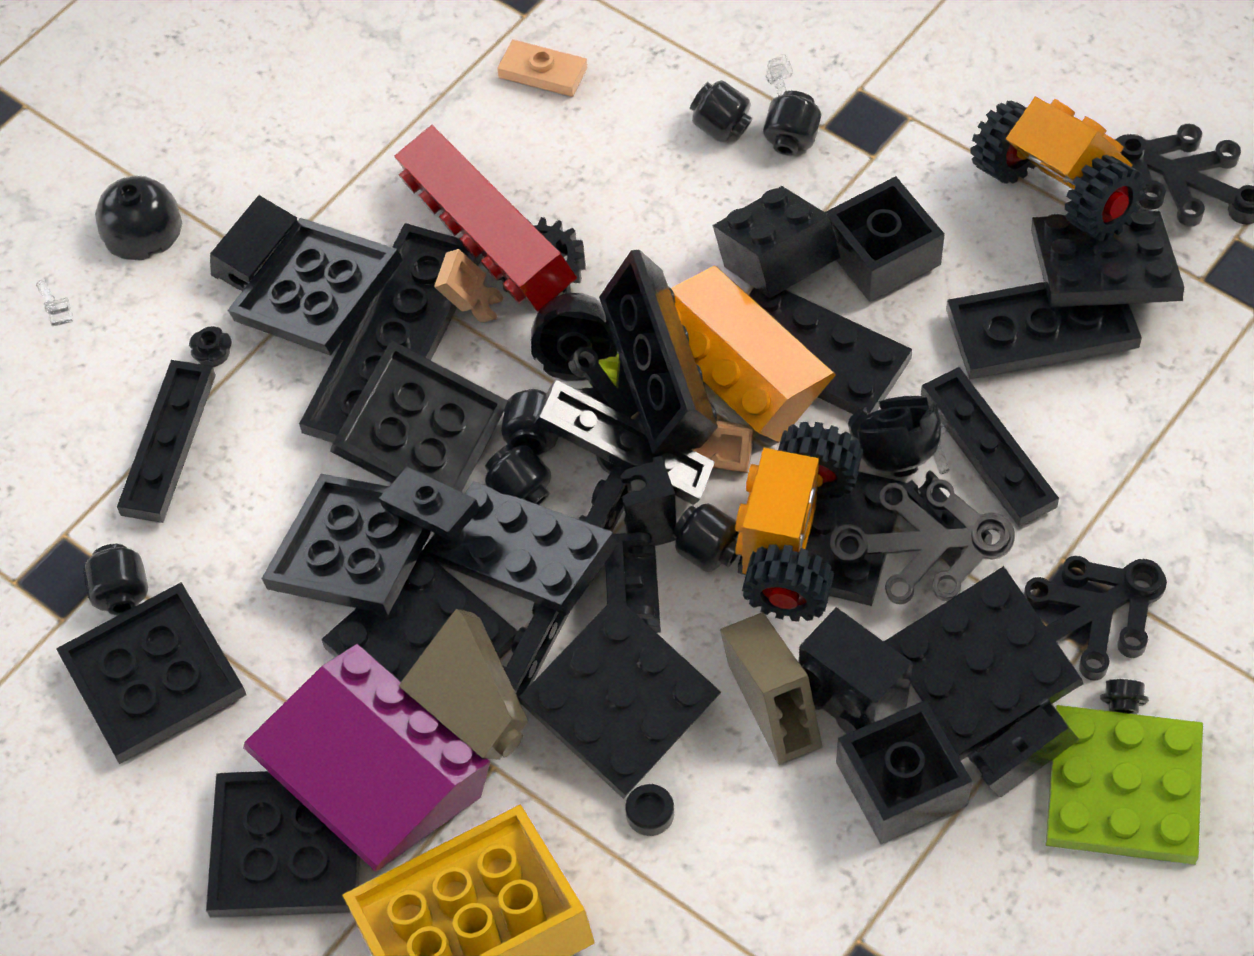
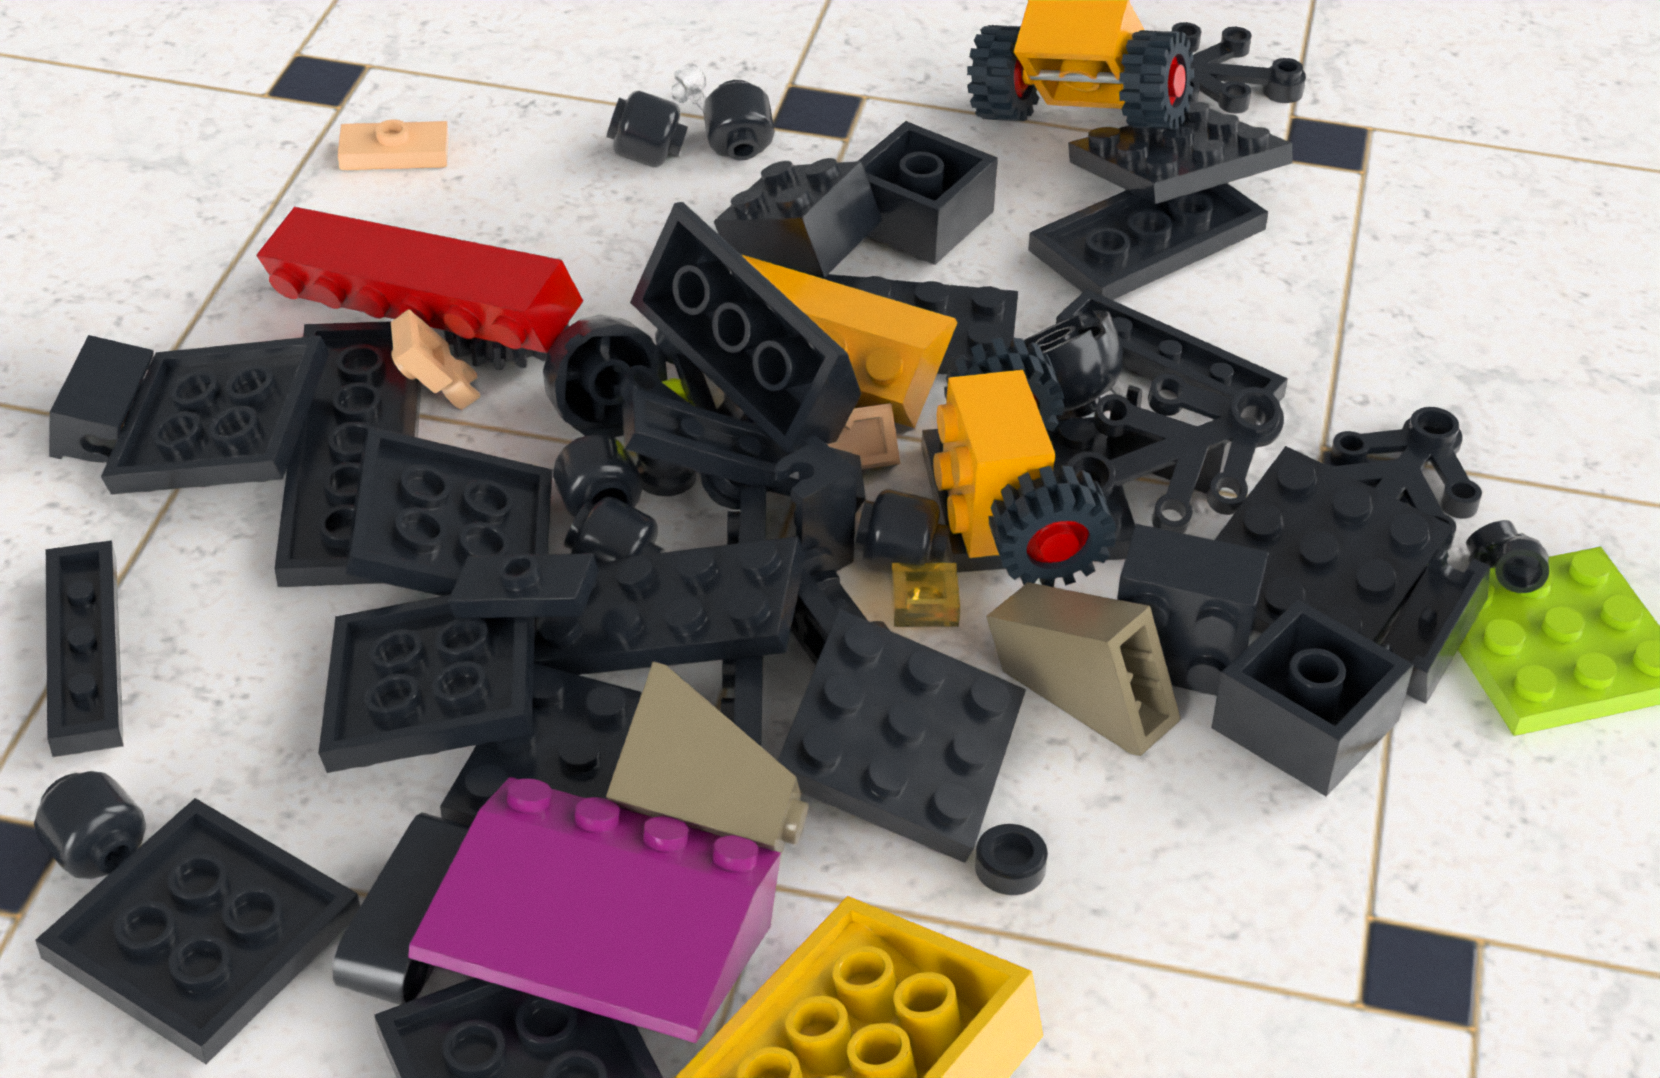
camera: 30 degrees left, 15 degrees down
(210, 354) = (92, 522): black plate -> none
(259, 702) = (377, 941): none -> black beam
(701, 590) = (925, 595): none -> clear yellow plate
(1117, 723) = (1522, 564): none -> black hinge

